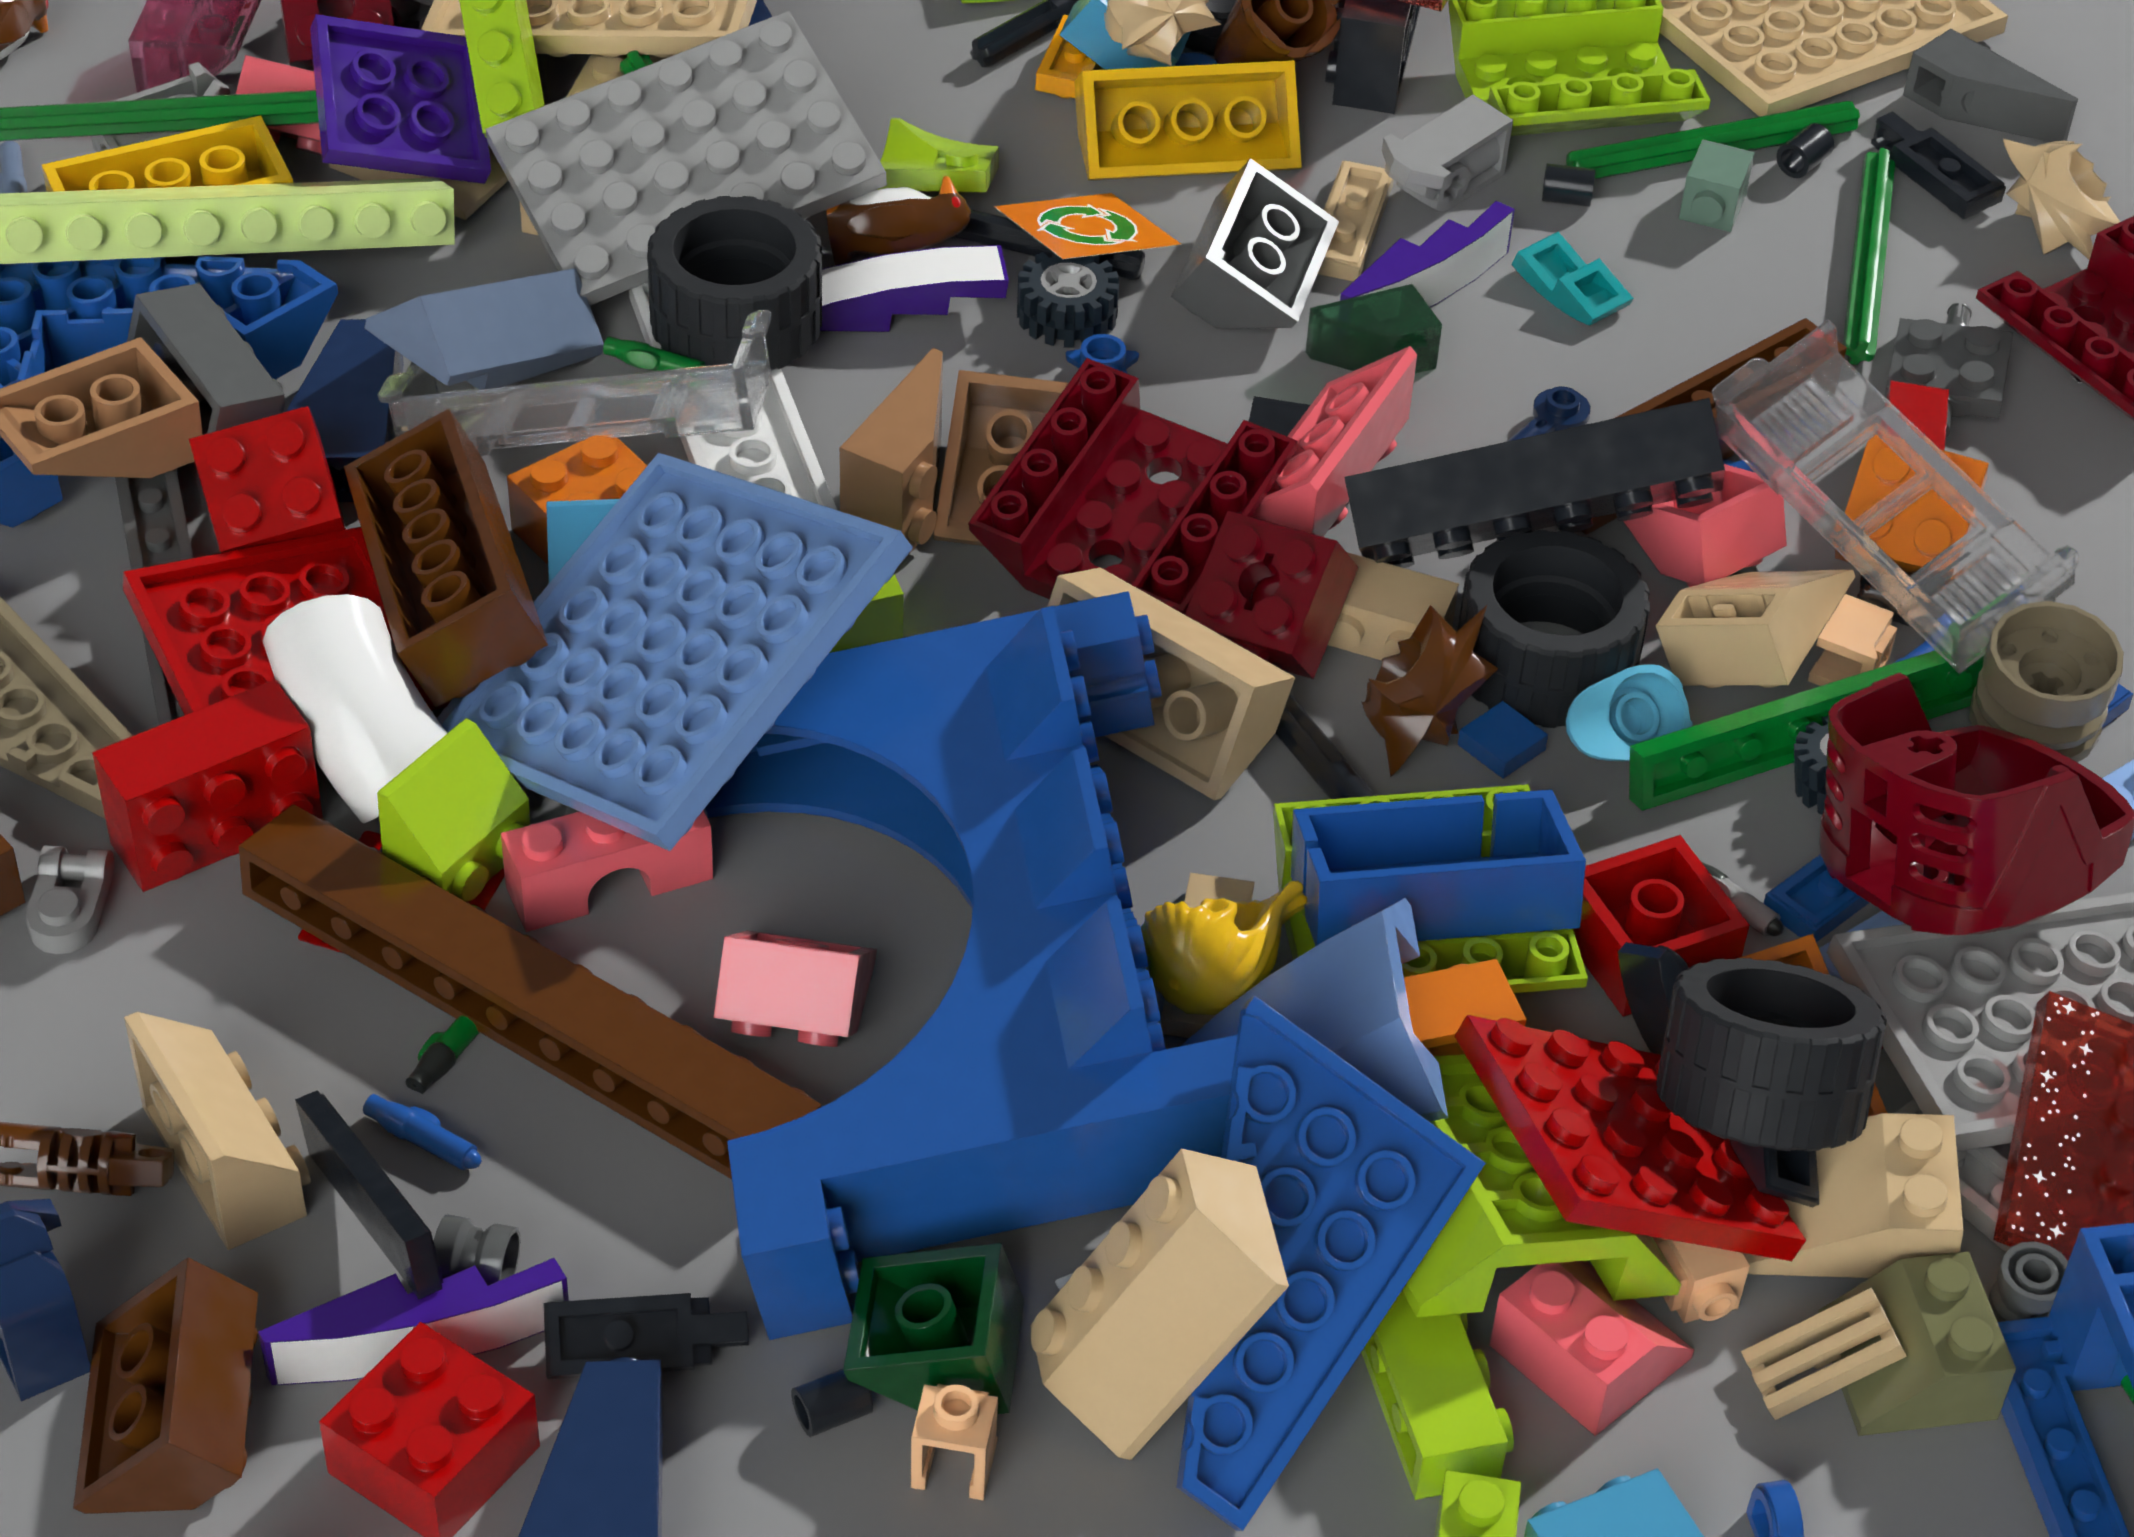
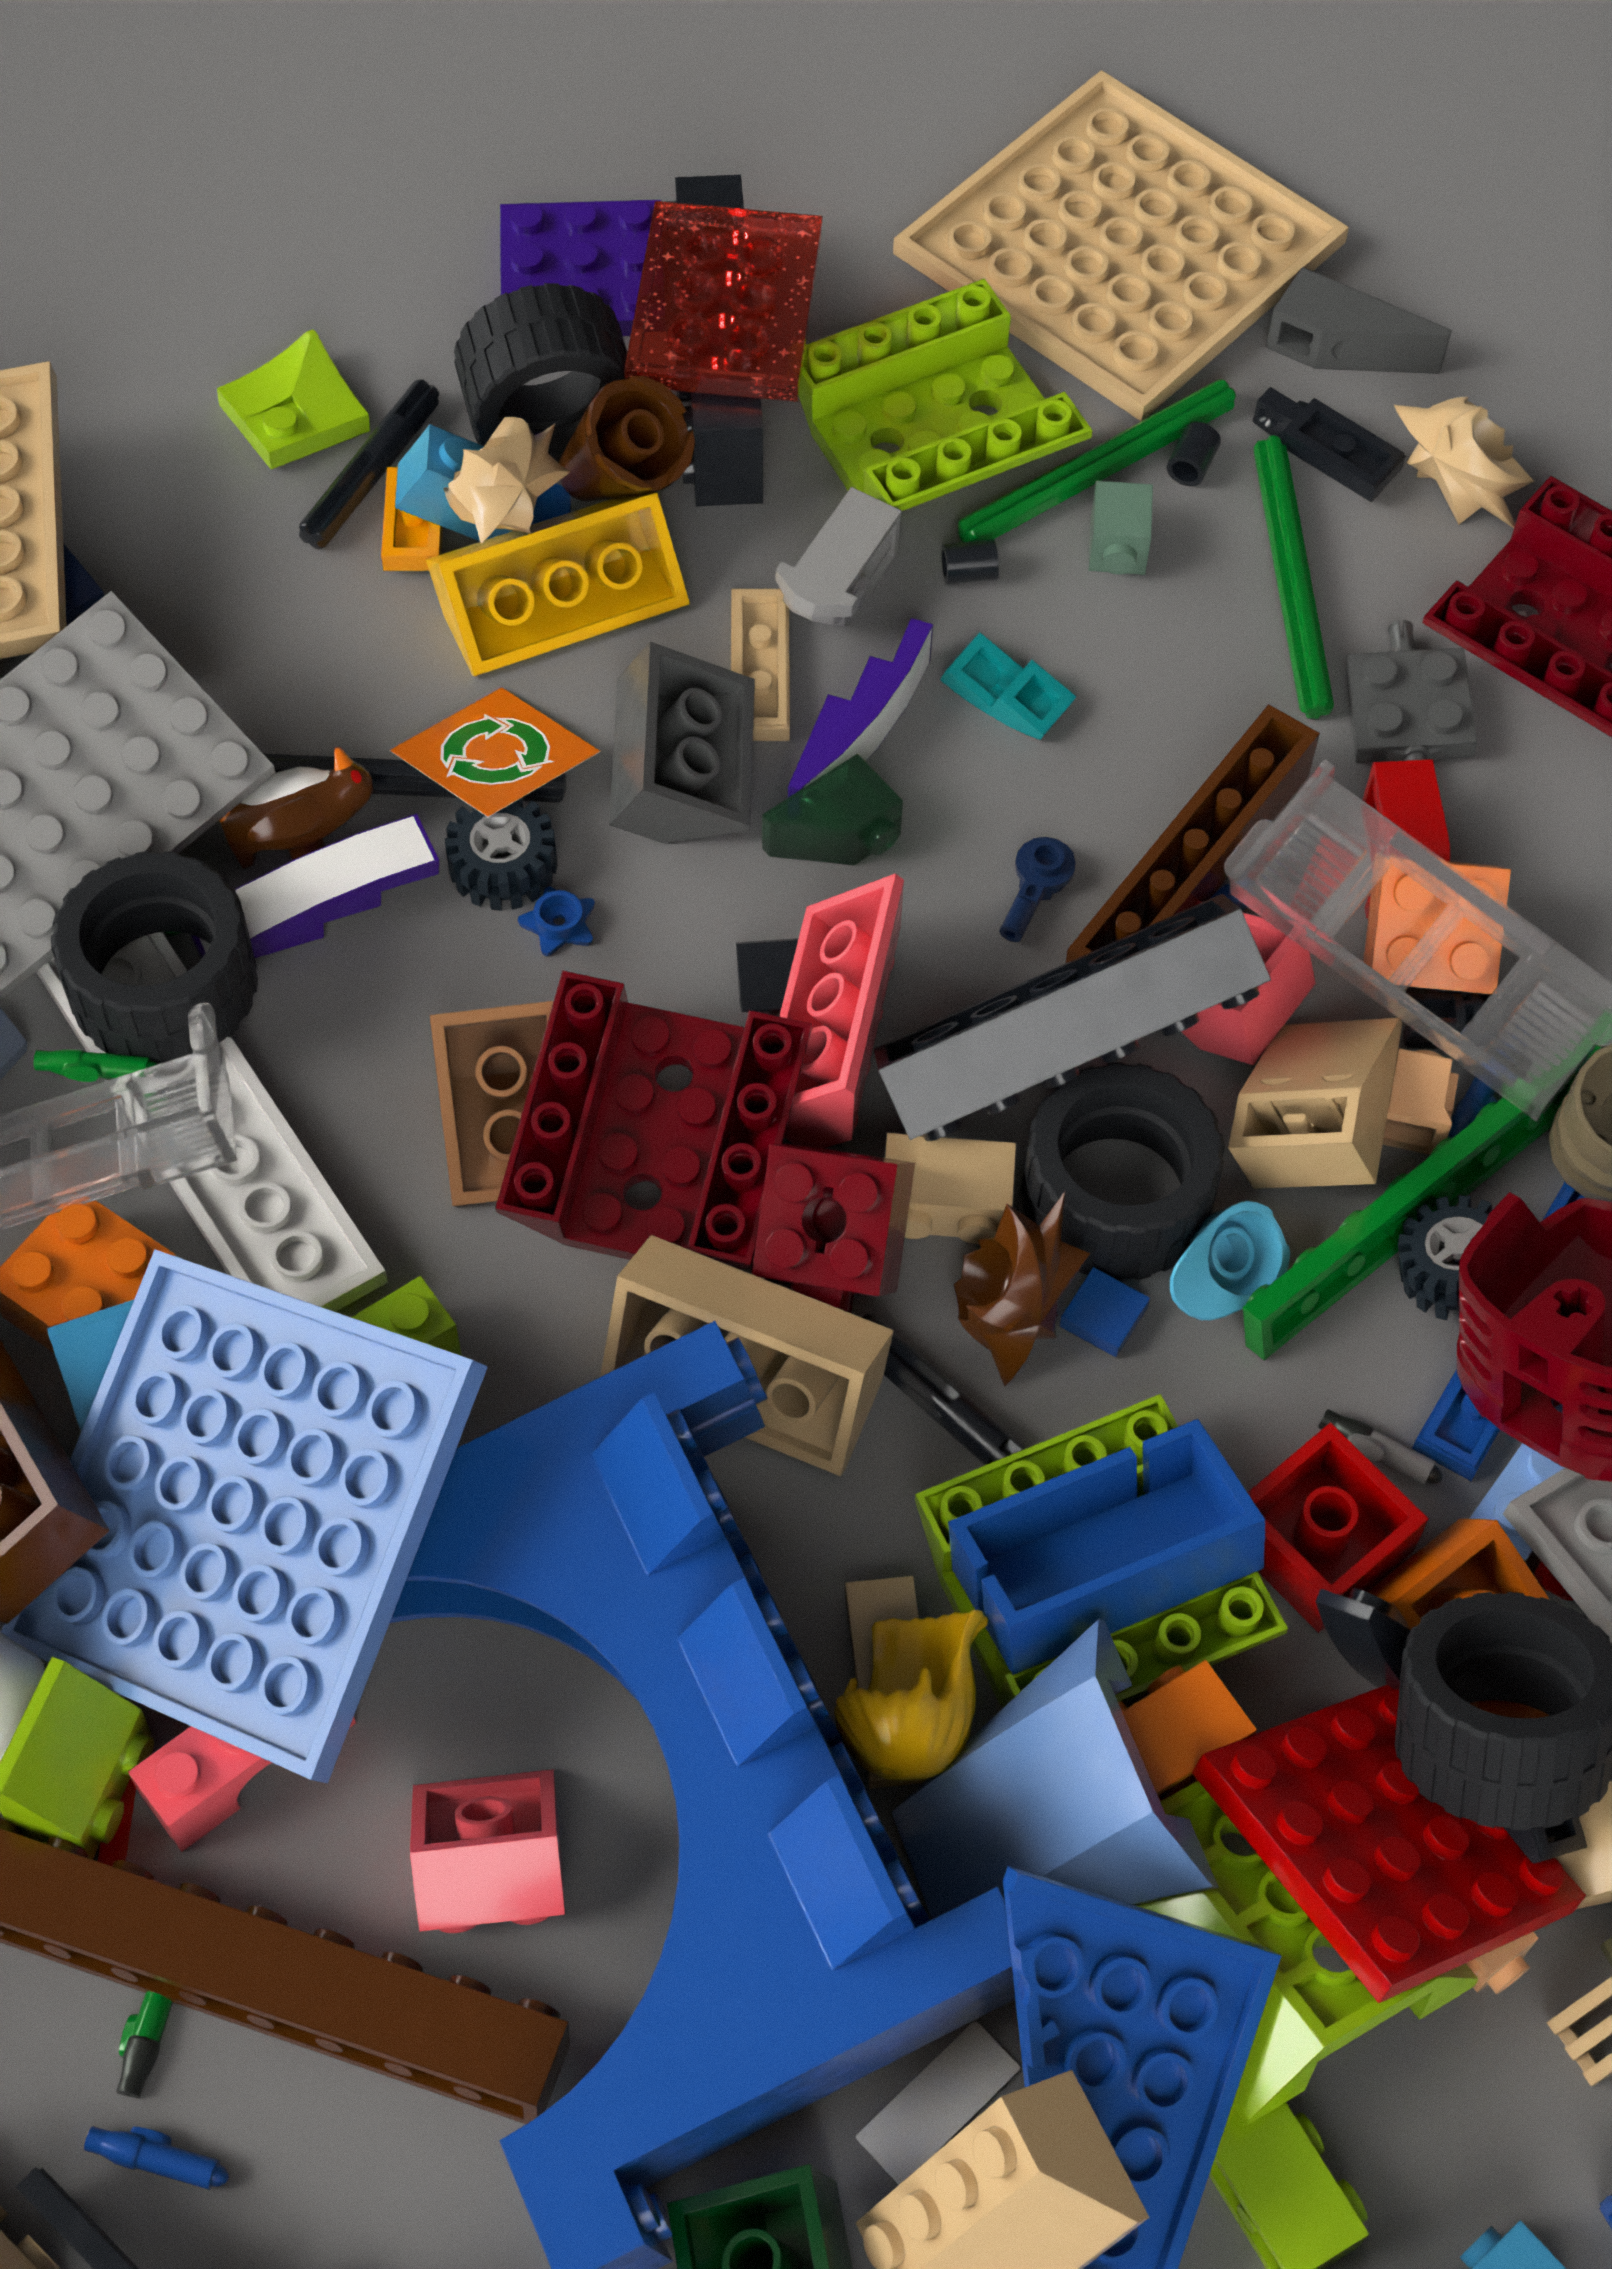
camera: 15 degrees left, 15 degrees up
(895, 456) = (393, 1154): medium nougat slope -> none
(922, 160) = (310, 707): lime plate -> none
(1582, 1344) = (1411, 2073): coral slope -> none

